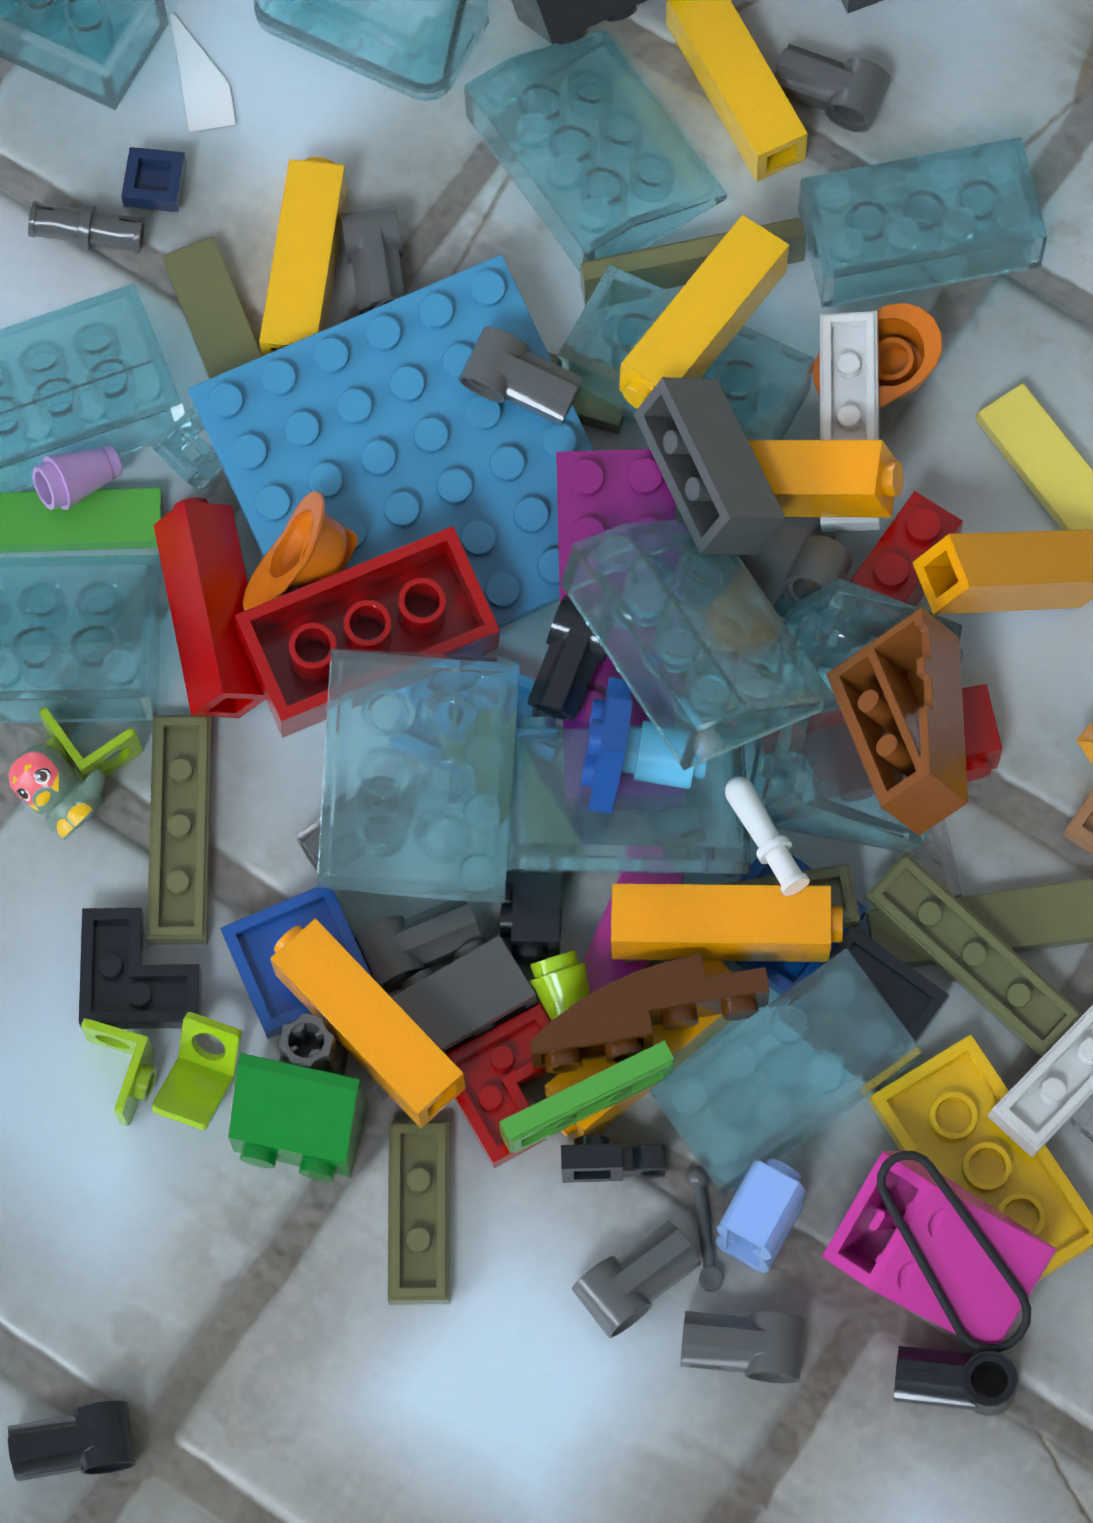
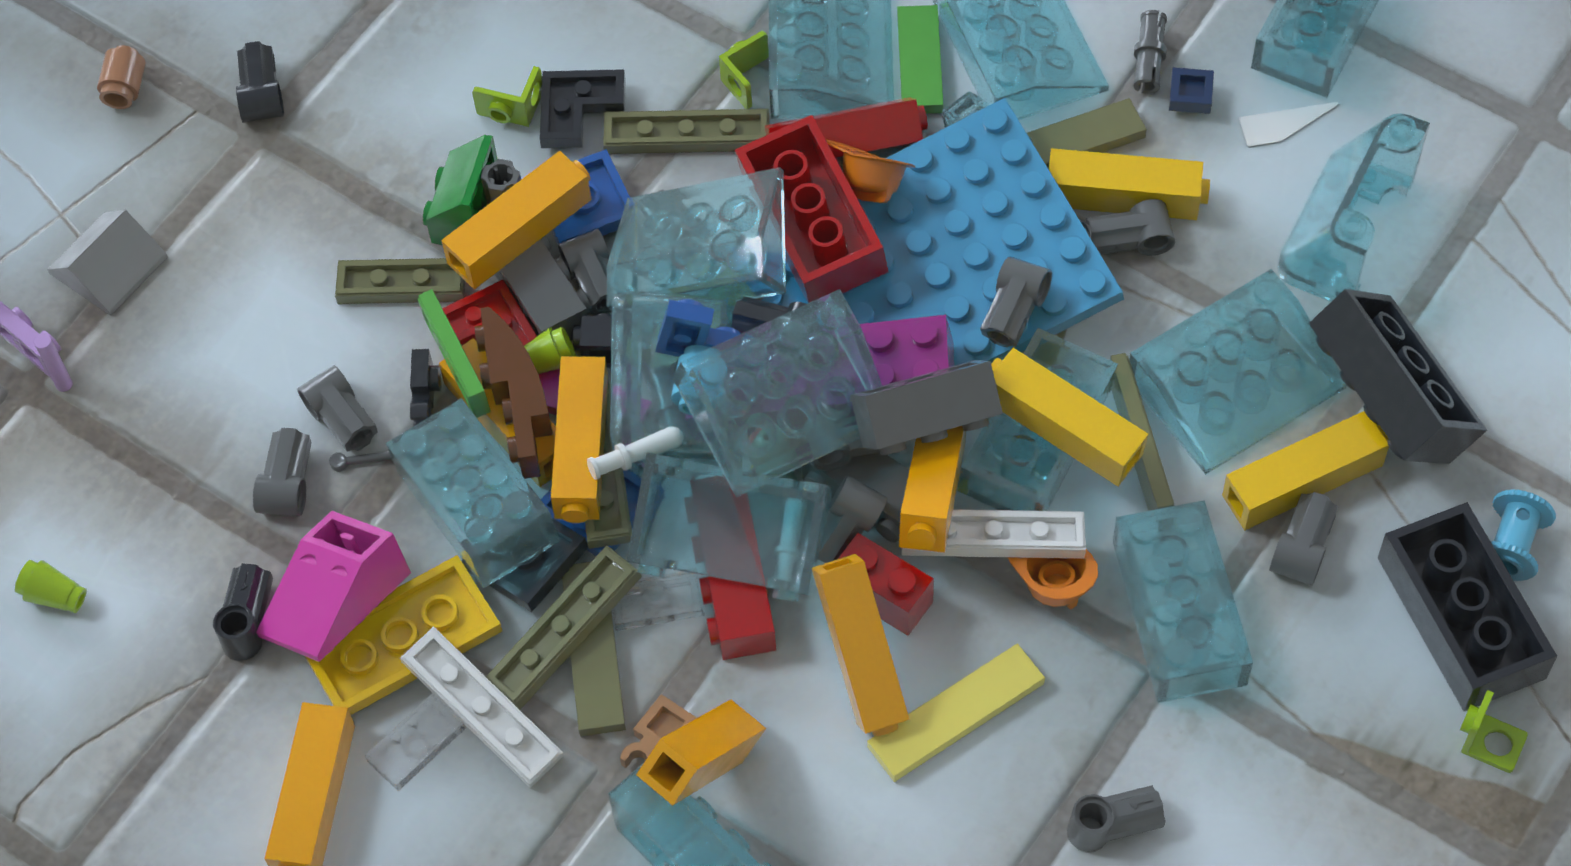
camera: 90 degrees right, 10 degrees down
(50, 786) = (709, 41): animal -> none
(74, 475) = (945, 46): lavender cone -> none
(199, 1077) = (507, 143): lime bracket -> none
(761, 1214) = (366, 474): light blue brick -> none
(908, 719) = (714, 539): dark orange wedge -> none
(977, 1233) = (258, 626): black piece -> none

